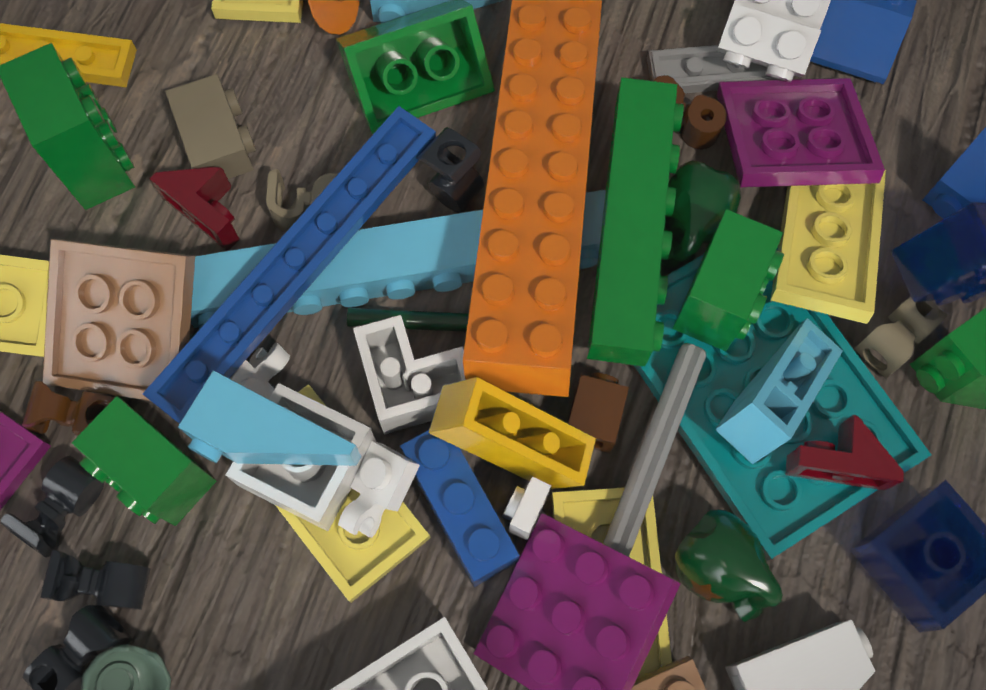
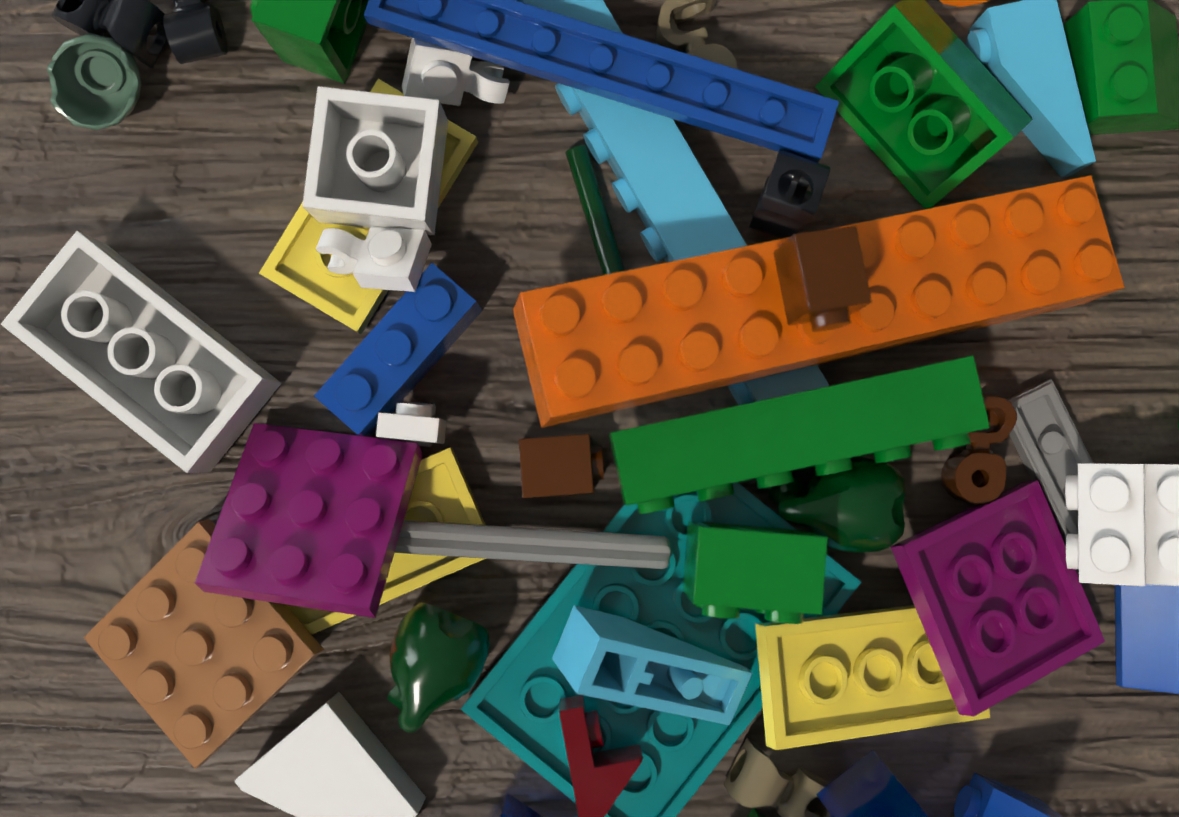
camera: 70 degrees right, 15 degrees up
(255, 430) = (367, 81): medium azure slope -> none
(401, 387) = (510, 229): white brick -> none
(512, 434) = (483, 380): yellow brick -> none
(533, 144) = (822, 278): none -> reddish brown brick

